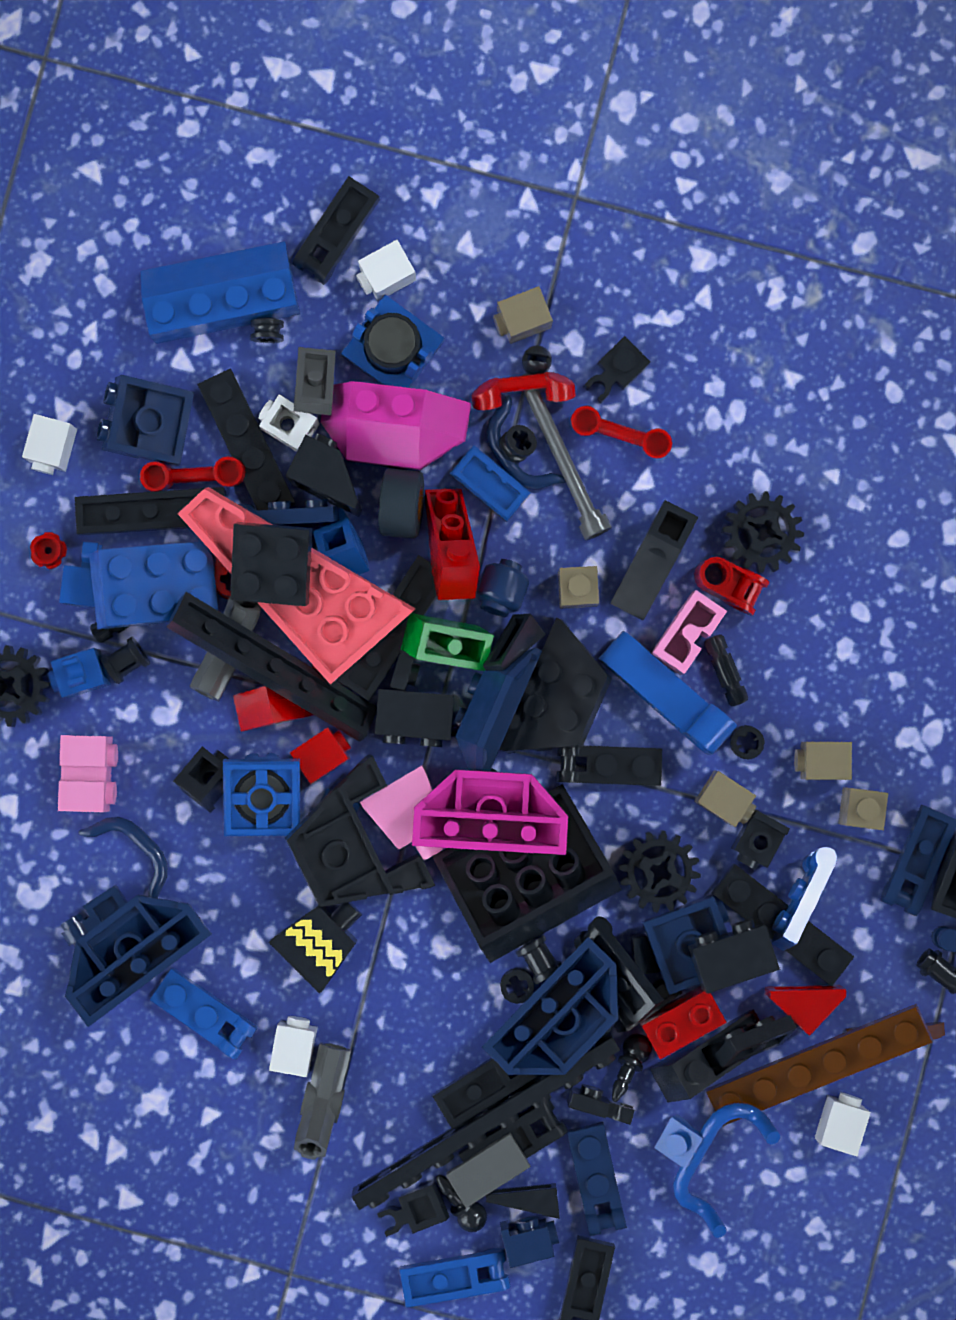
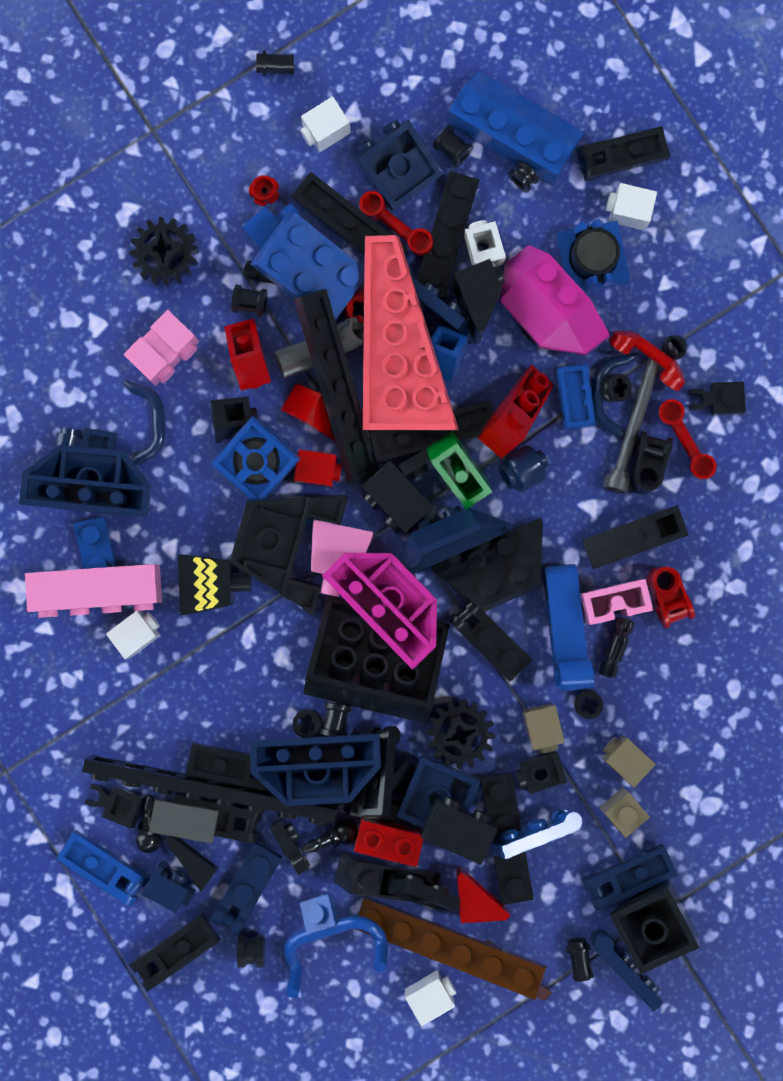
camera: 45 degrees right, 0 degrees up
(78, 673) = (213, 282): blue brick -> none
(166, 710) = (247, 354): none -> red slope
(180, 360) = (453, 146): none -> black bush
(221, 1040) = (93, 588): none -> bright pink brick
(271, 564) = (394, 319): black plate -> none
(314, 381) = (524, 233): dark grey plate -> none
(322, 1100) = (121, 683): dark grey piece -> none
(401, 503) = (509, 358): black wheel -> none
(514, 641) = (503, 508): black piece -> none
(523, 315) = (692, 311): dark tan brick -> none
(578, 587) = (572, 511): dark tan brick -> none
(605, 479) = (651, 456): none -> black piece
(650, 1229) = (251, 951): none -> black wheel
(778, 539) = (713, 571): black gear -> none

